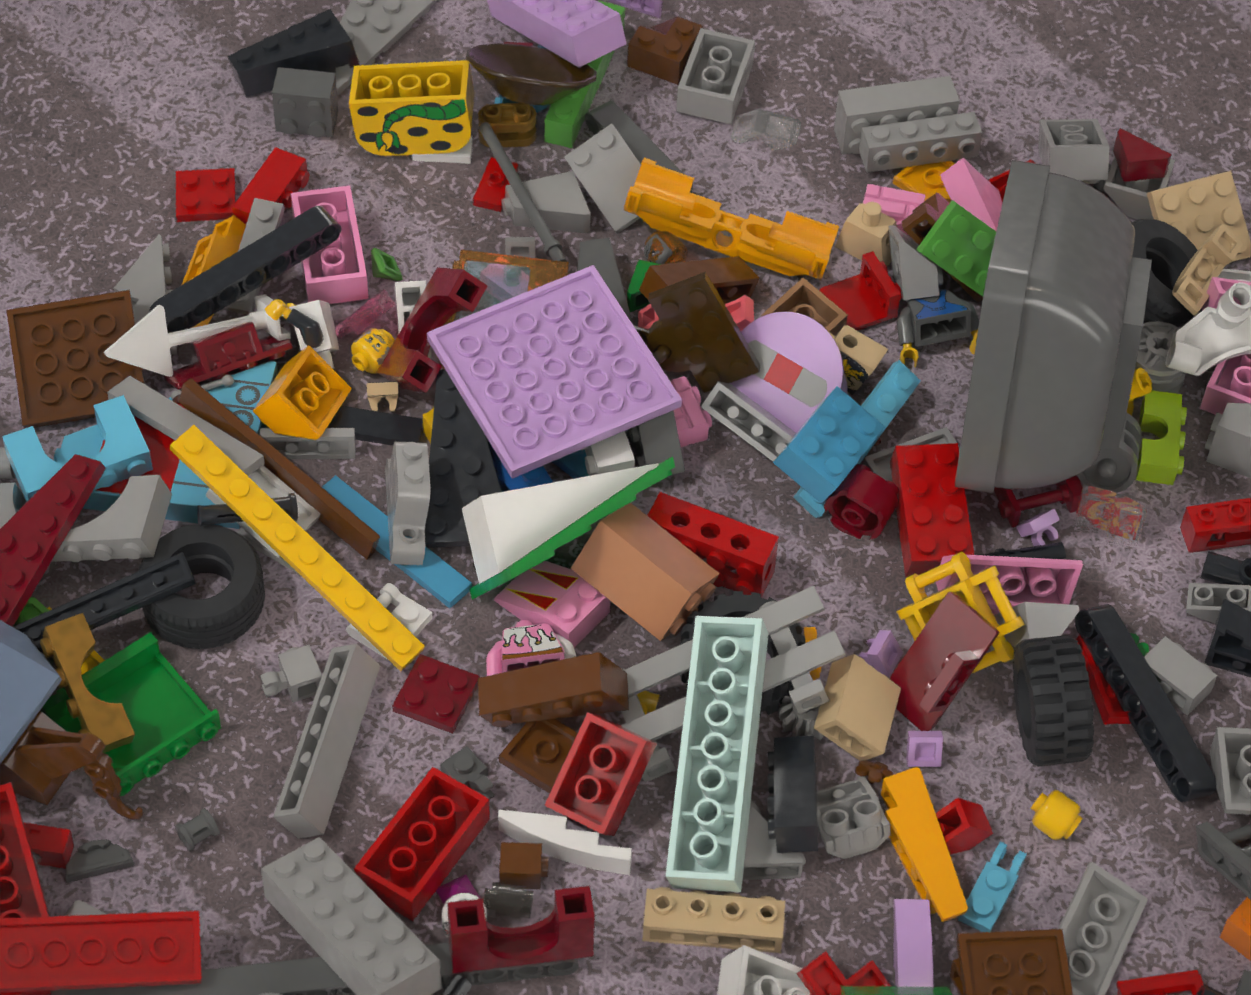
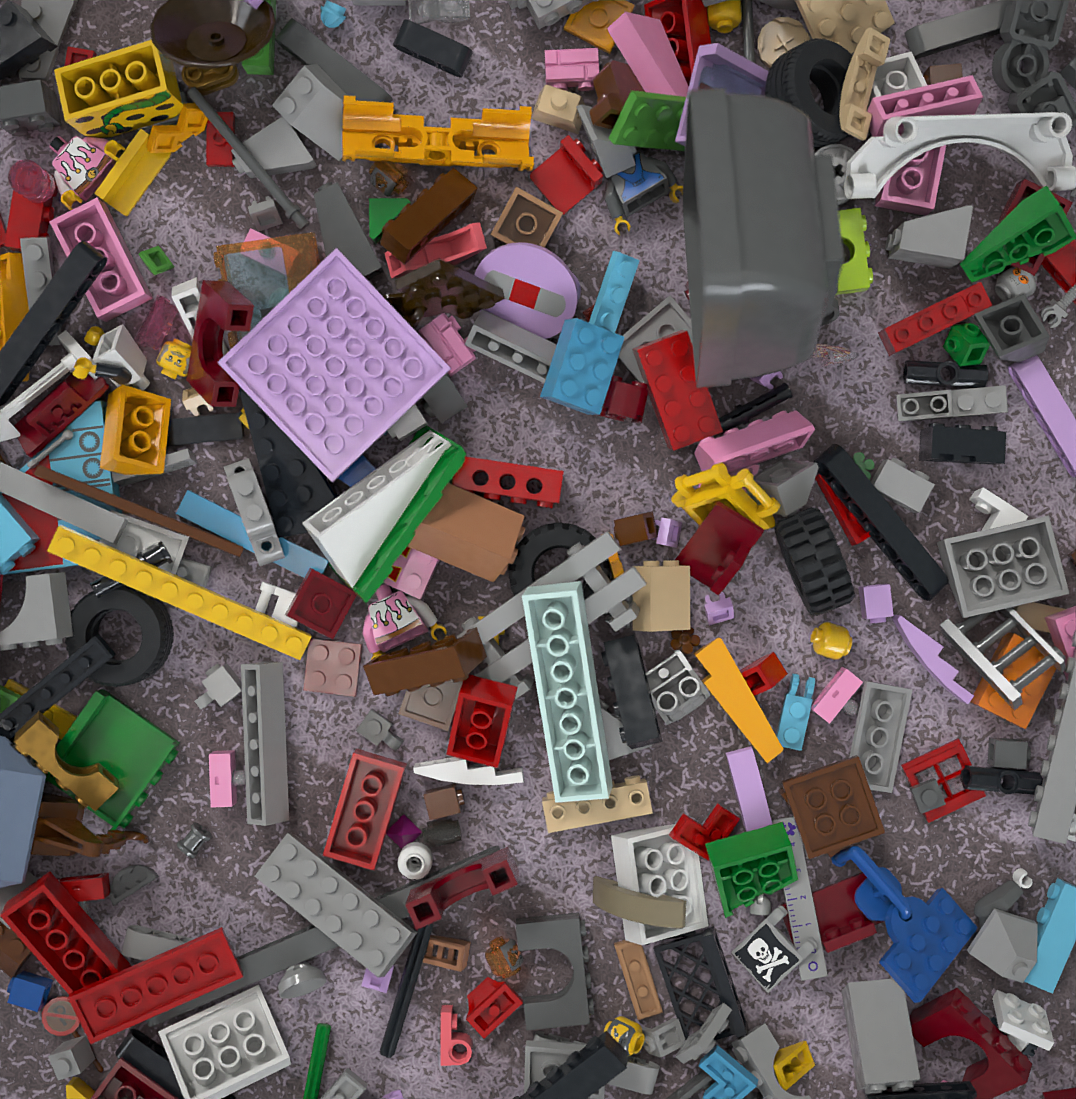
camera: 10 degrees left, 35 degrees up
(261, 771) = (224, 778): none -> bright pink piece
(289, 152) = (31, 181): none -> clear pink wheel
(346, 164) = (82, 166): none -> torso
(392, 187) = (131, 175): none -> yellow panel
(445, 167) = (169, 137): none -> light orange tile
(448, 617) = (321, 603): none -> dark red plate
(653, 110) = (332, 14): none -> medium azure plate
(749, 161) = (432, 48): none -> black beam
(851, 631) = (635, 528): none -> reddish brown brick
(859, 356) = (579, 255): tan torso -> none
(1050, 877) = (838, 696): none -> bright pink piece
(1121, 787) = (876, 602): none -> lavender brick
(1174, 857) = (927, 653): none -> lavender slope

